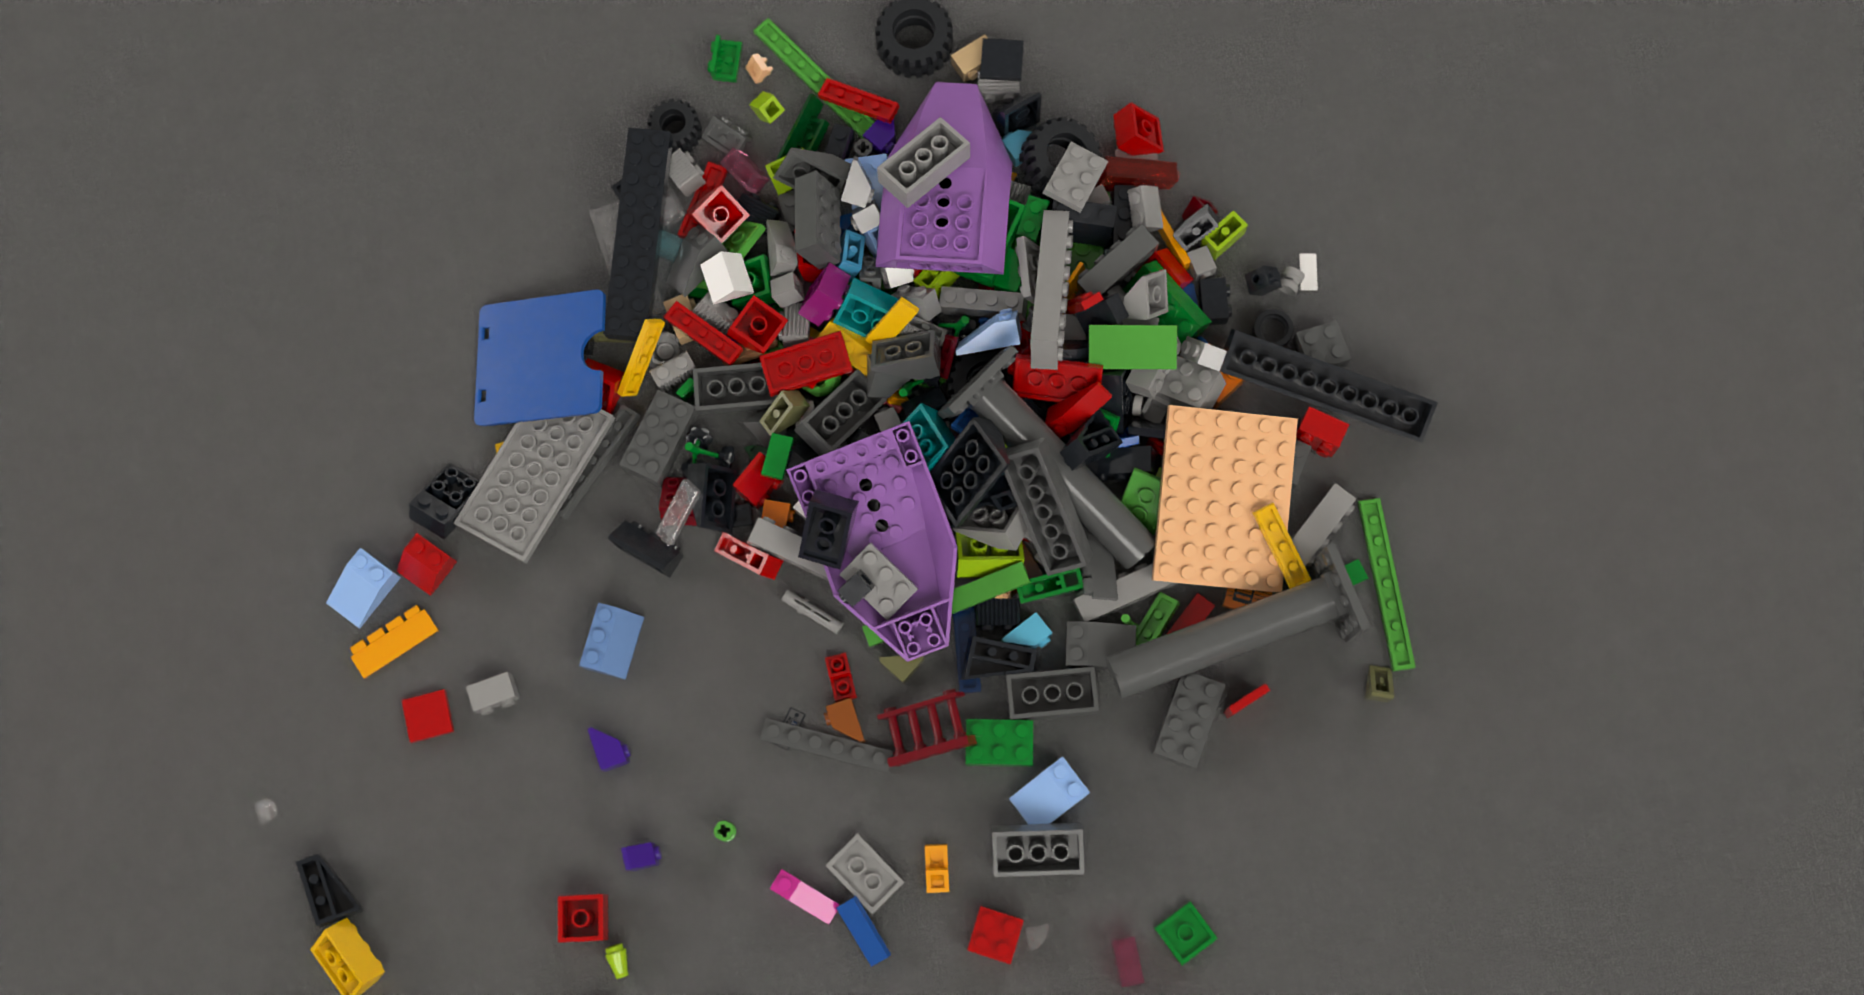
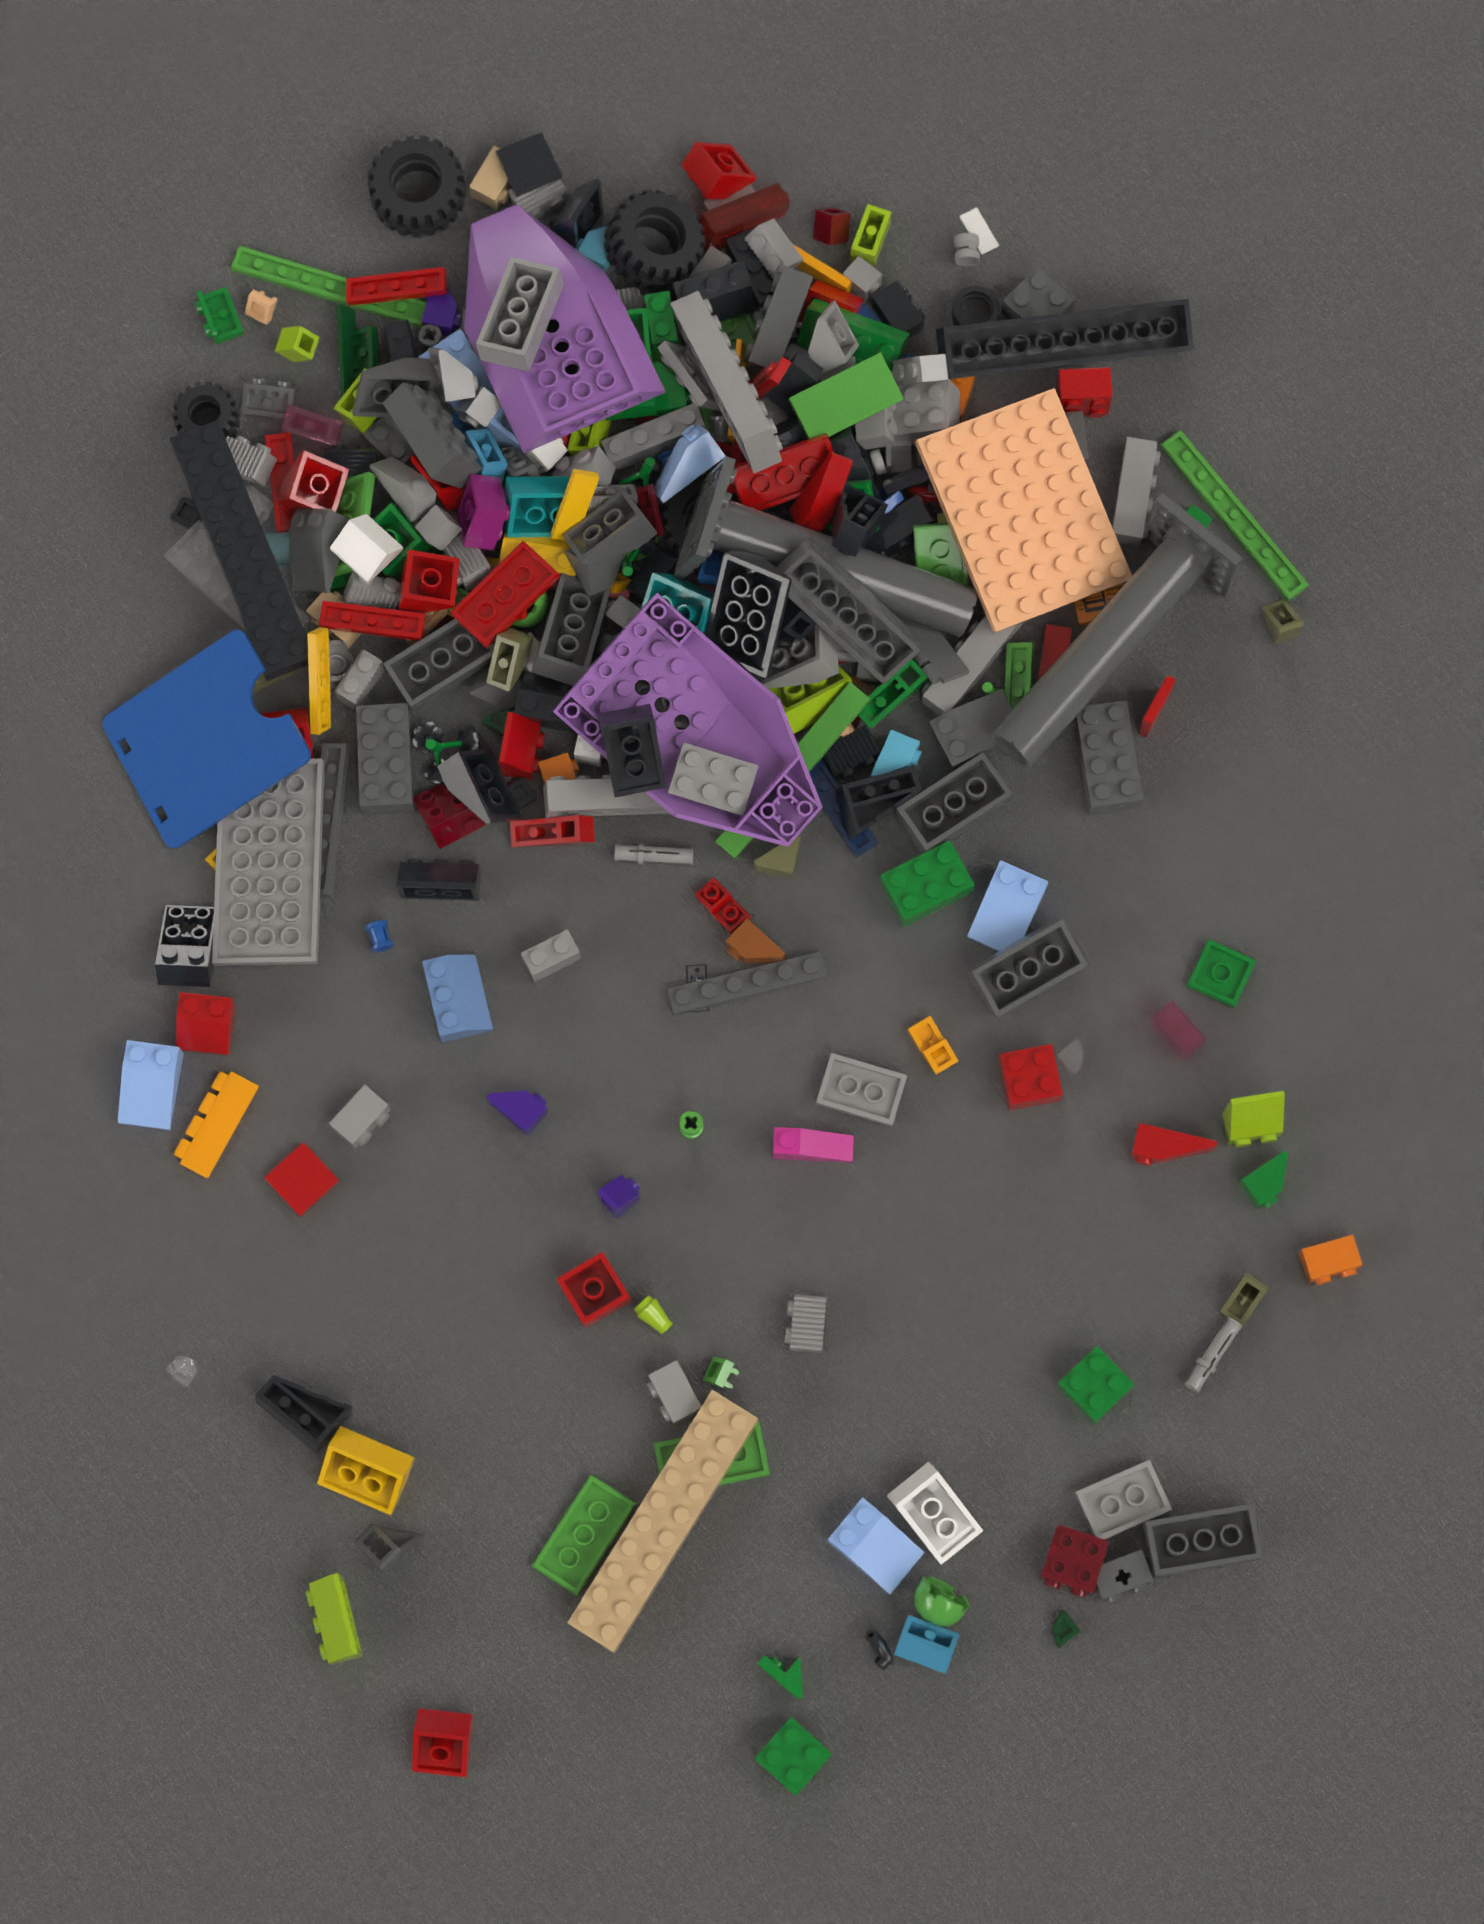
camera: 35 degrees left, 0 degrees up
(582, 566) = (379, 936): none -> blue bush
(678, 512) = (455, 821): clear tile -> none
(686, 390) = (385, 690): green tile -> none
(694, 647) = (550, 955): none -> light grey brick
(777, 456) = (531, 706): green tile -> none
(855, 588) = (695, 796): black brick -> none
(863, 931) = (893, 1146): blue tile -> none
(940, 745) = (869, 914): dark red fence -> none
(1075, 177) = (684, 251): light grey plate -> none
(1196, 227) = (838, 241): black brick -> none
(1263, 280) = (938, 263): black brick -> none
(1281, 545) = (1107, 528): yellow tile -> none

